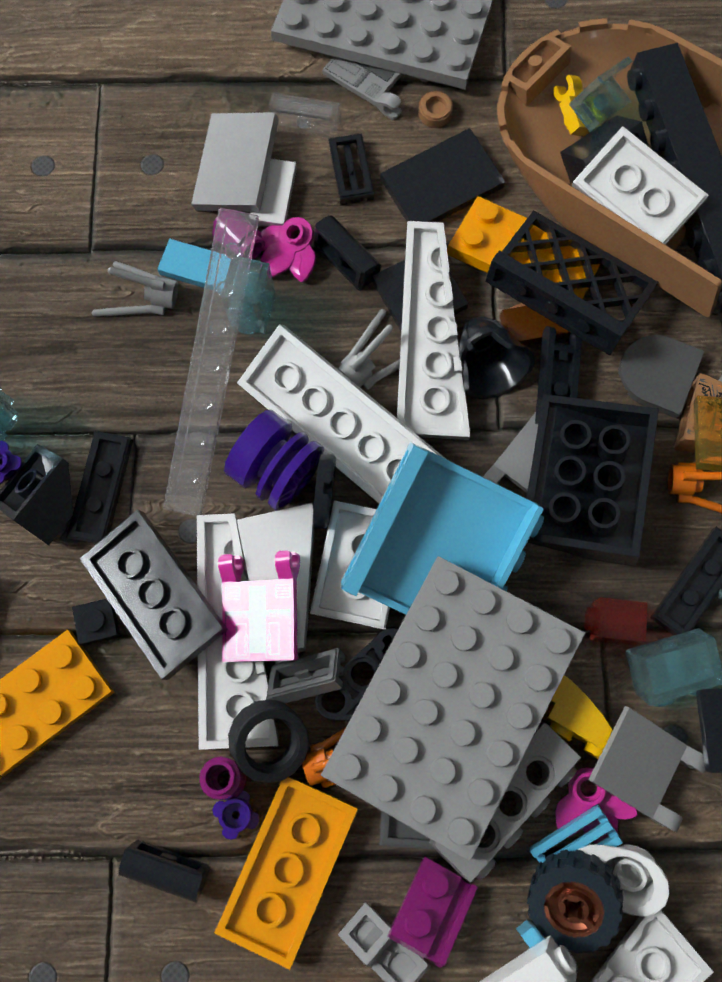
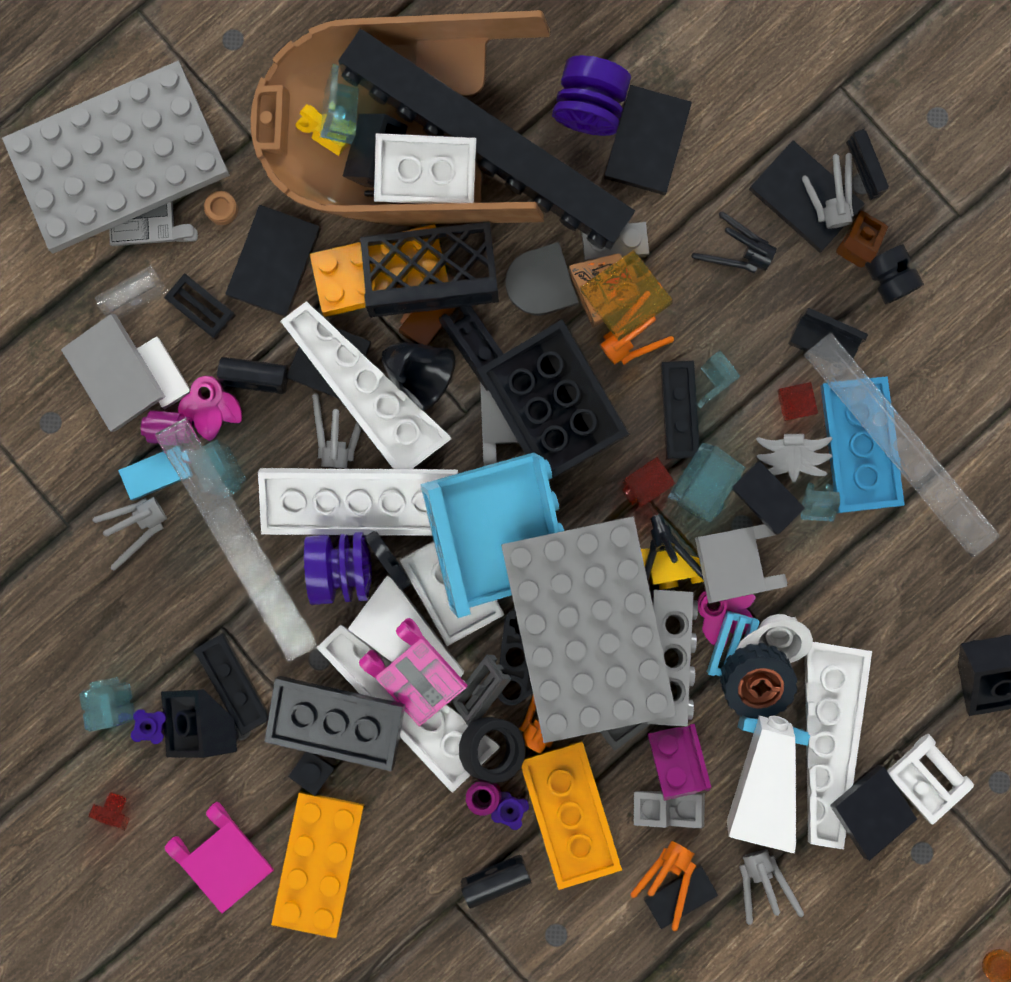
camera: 45 degrees left, 10 degrees up
(591, 684) = (665, 541): none -> black plant

